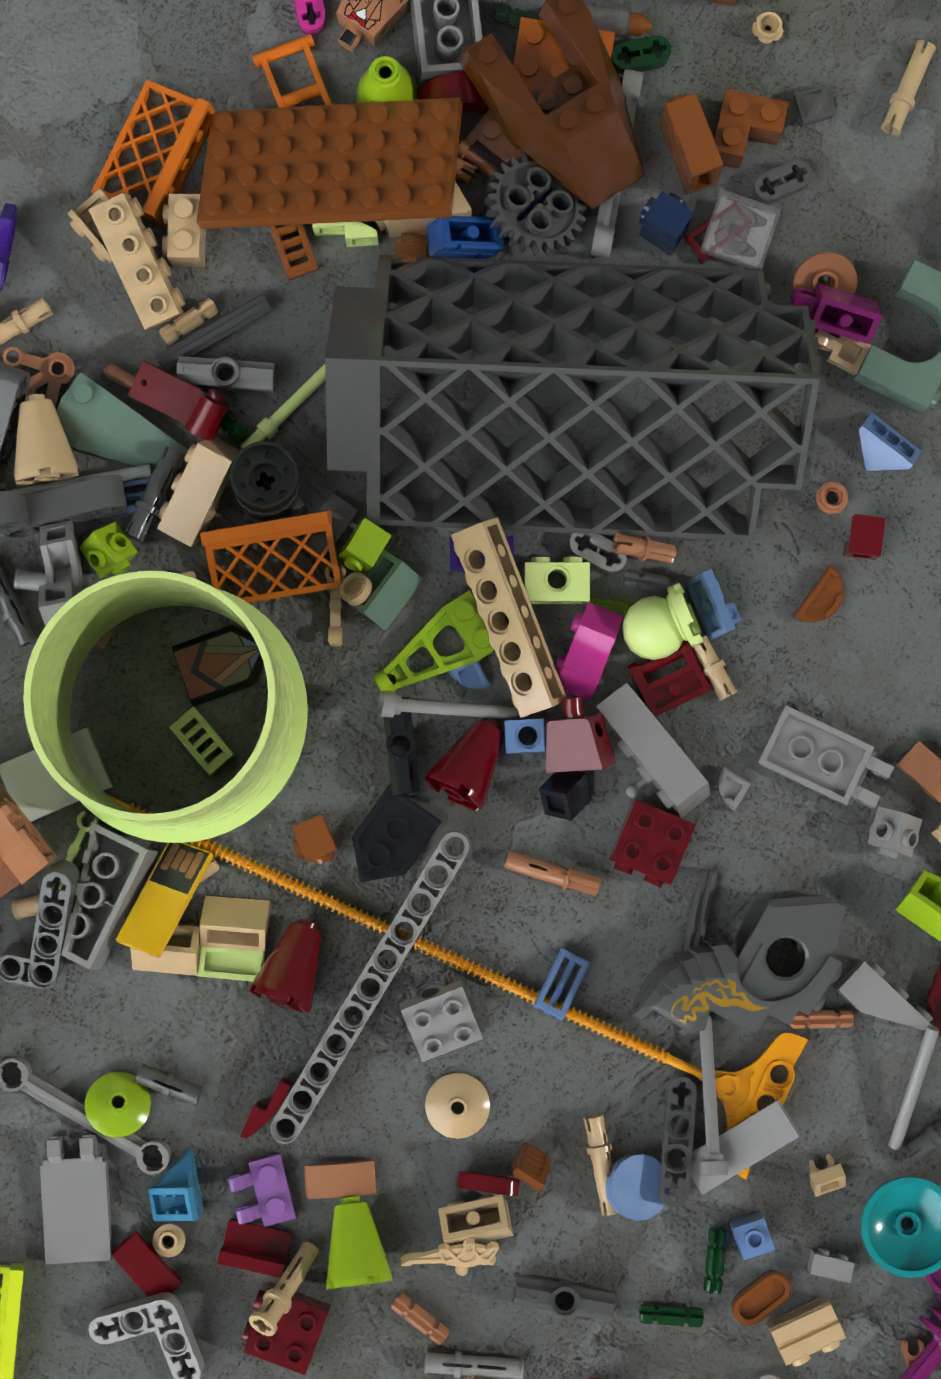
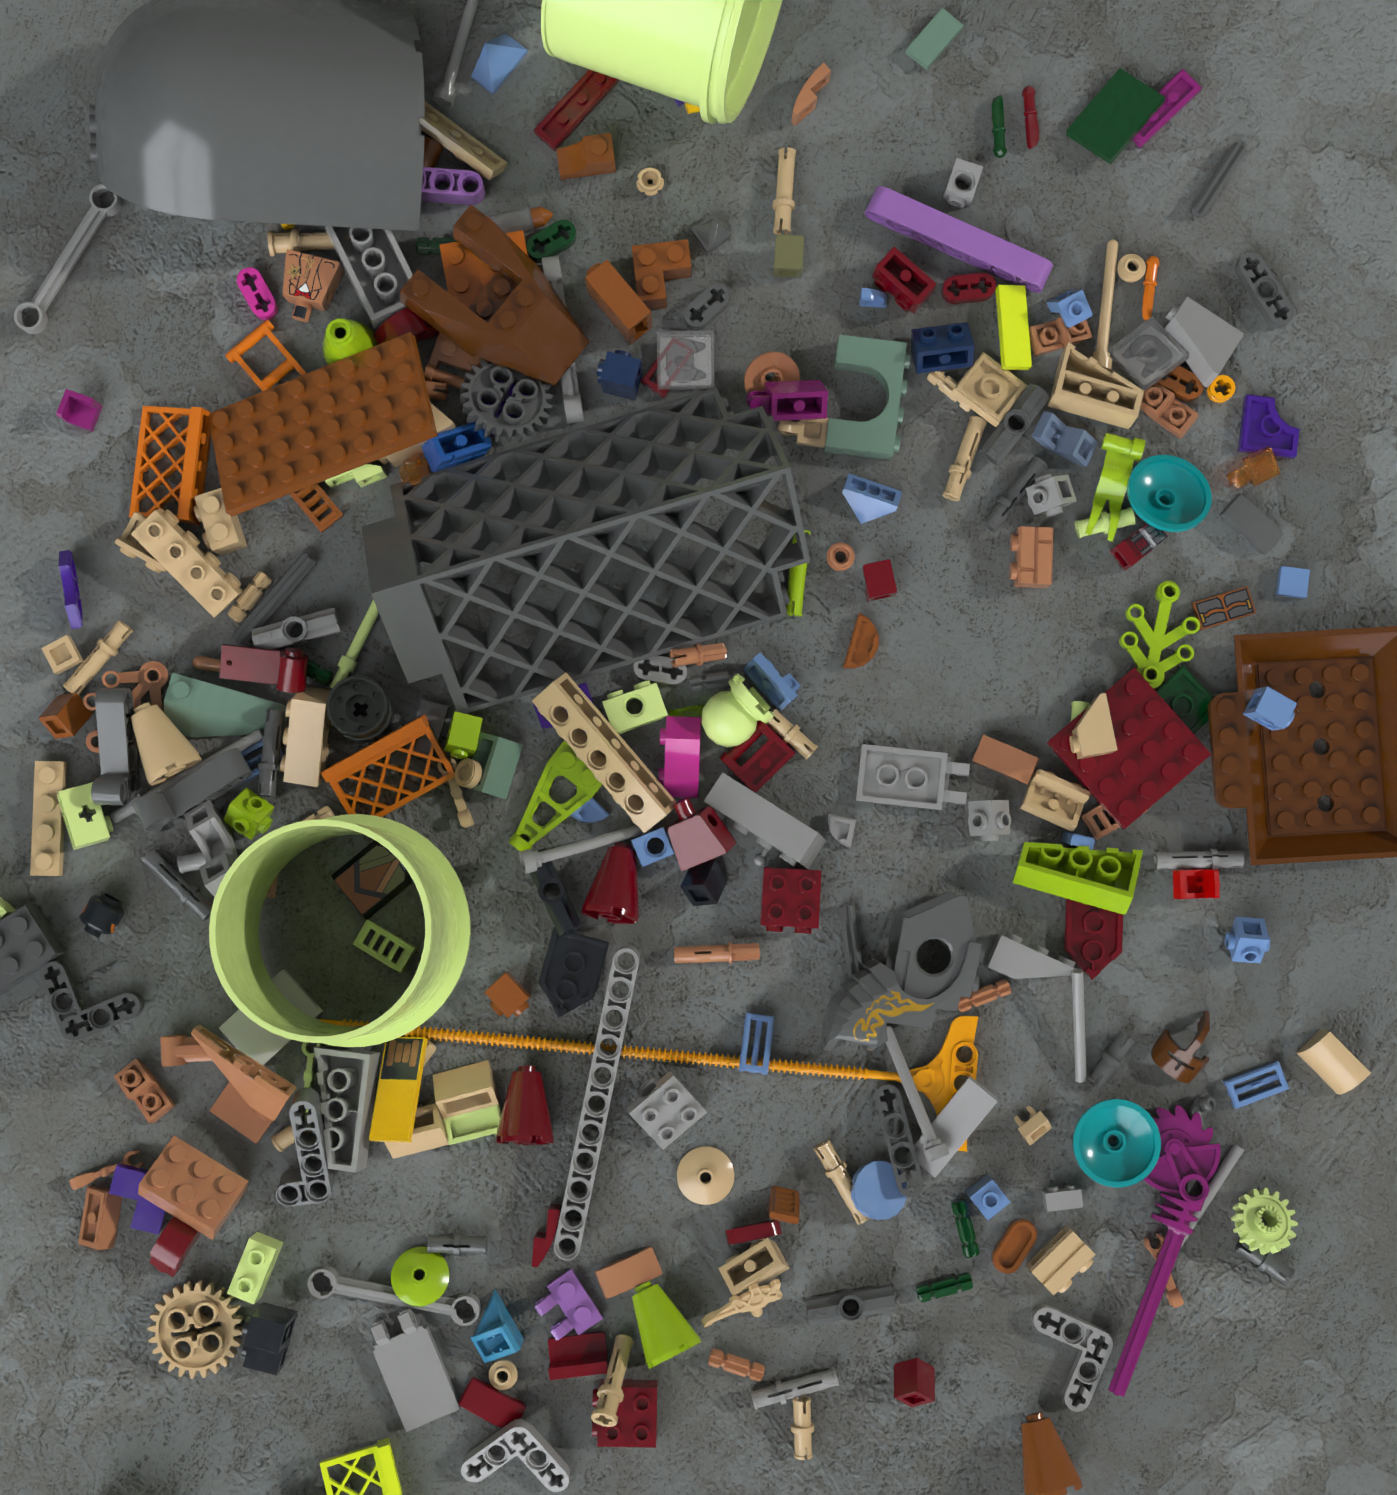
camera: 20 degrees left, 0 degrees up
(78, 61) = (79, 410): none -> magenta panel
(773, 512) = (796, 586): none -> lime pin
(889, 158) = (788, 256): none -> olive panel

